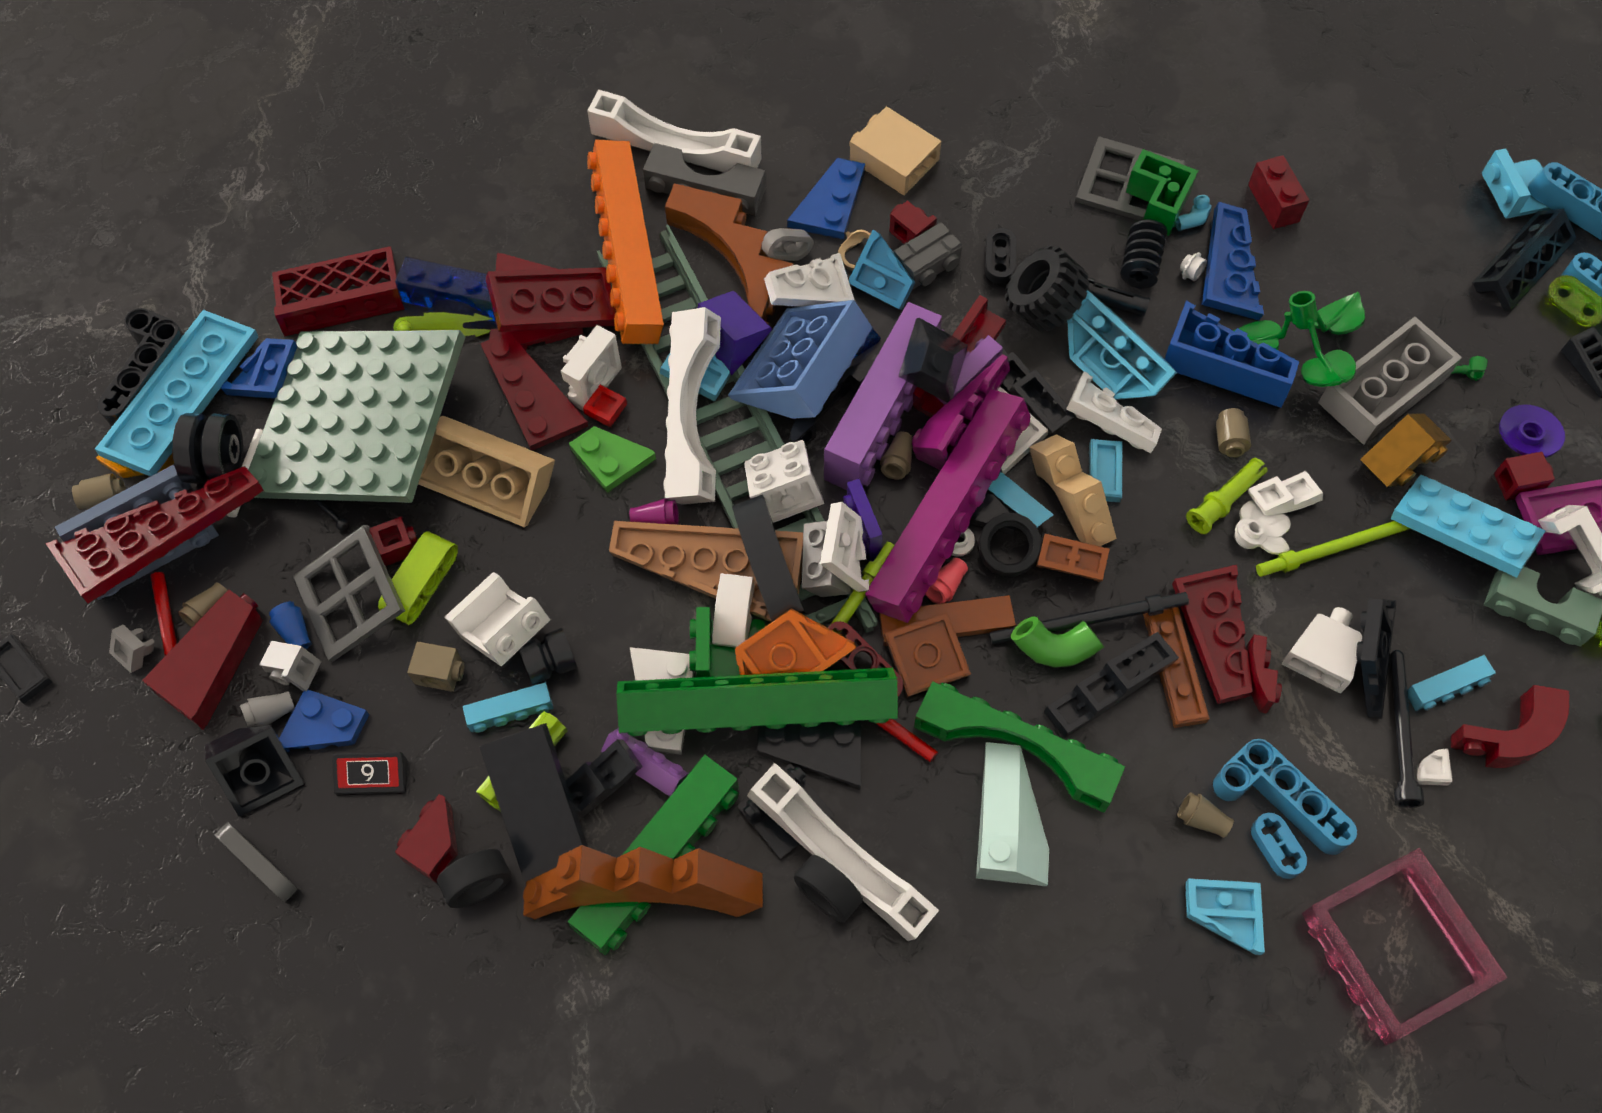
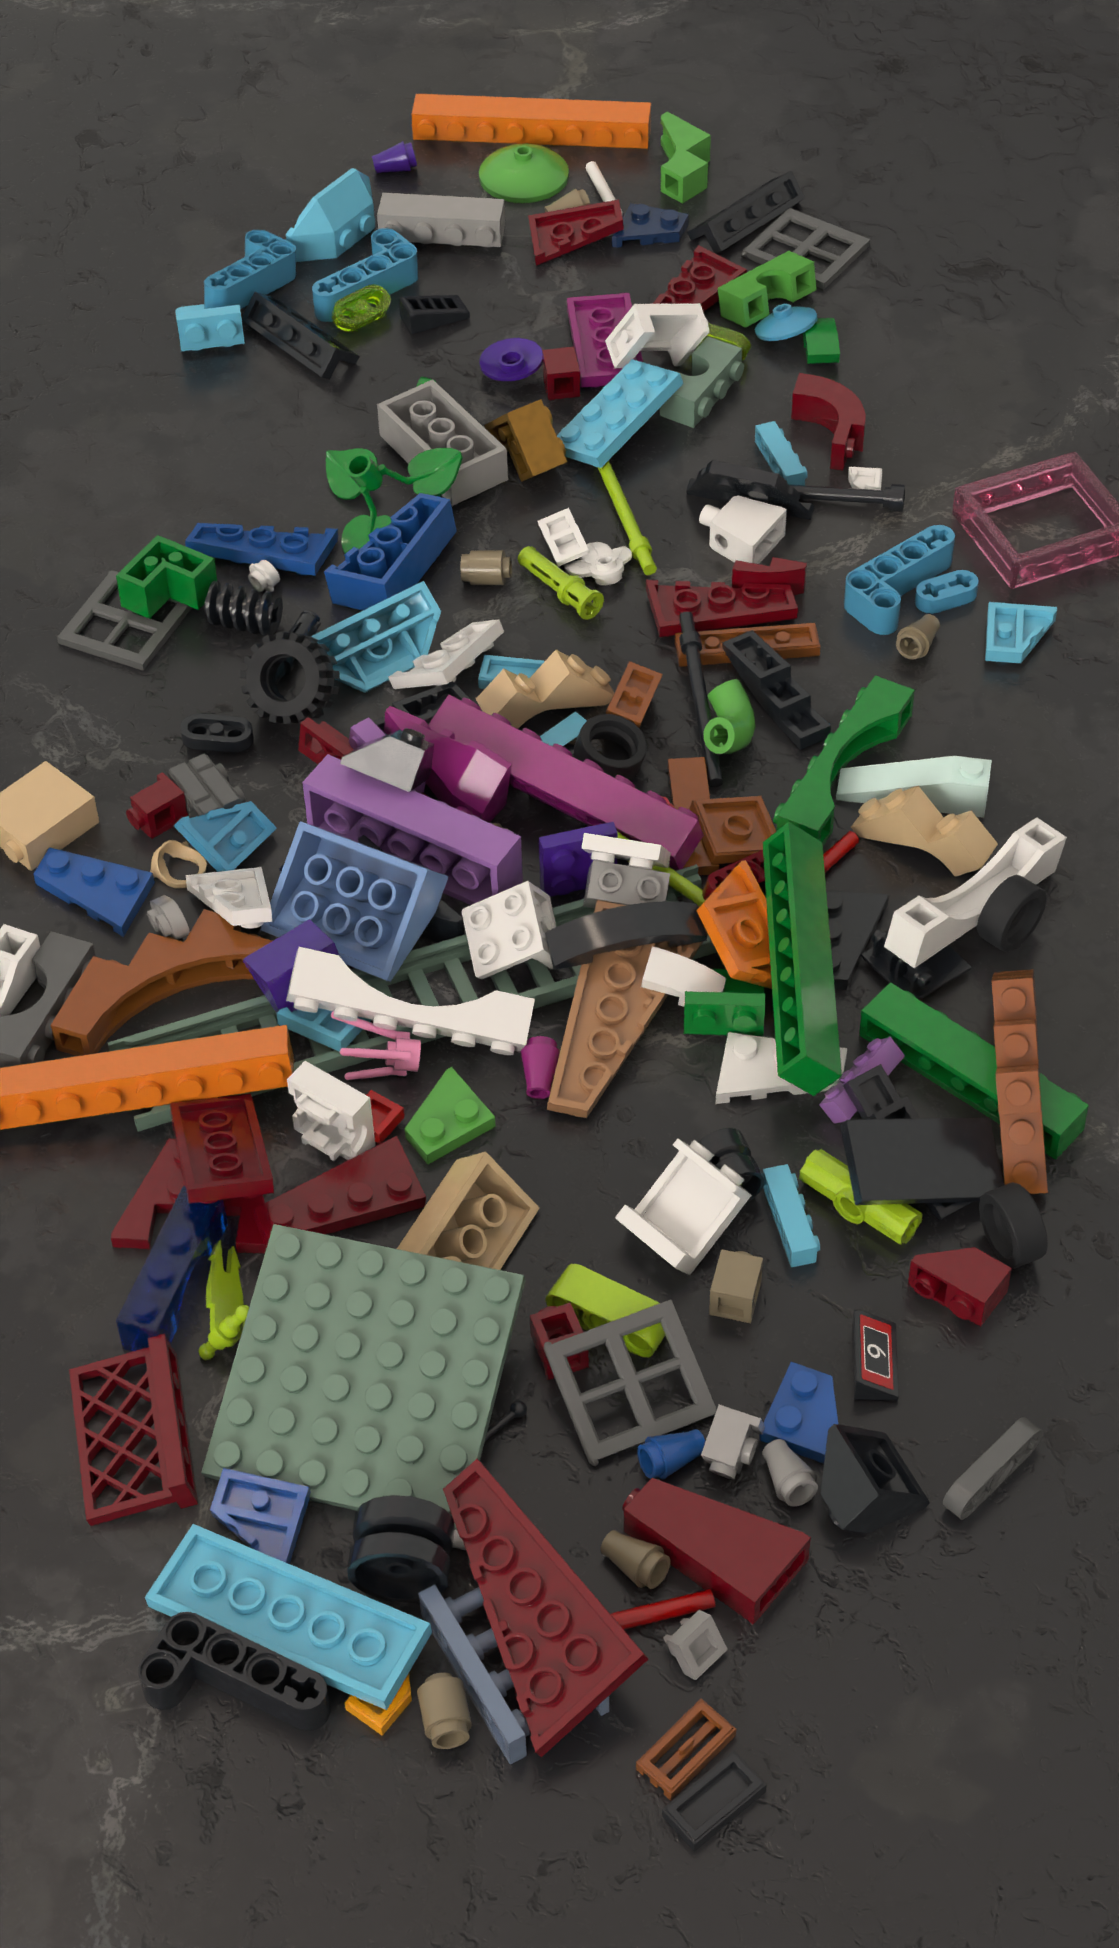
camera: 85 degrees left, 15 degrees down
(75, 664) = (660, 1776): none -> dark orange tile
(655, 410) = (401, 1055): none -> bright pink plant
(932, 816) = (915, 822): none -> tan arch
(1278, 192) = (180, 495): dark red brick -> none

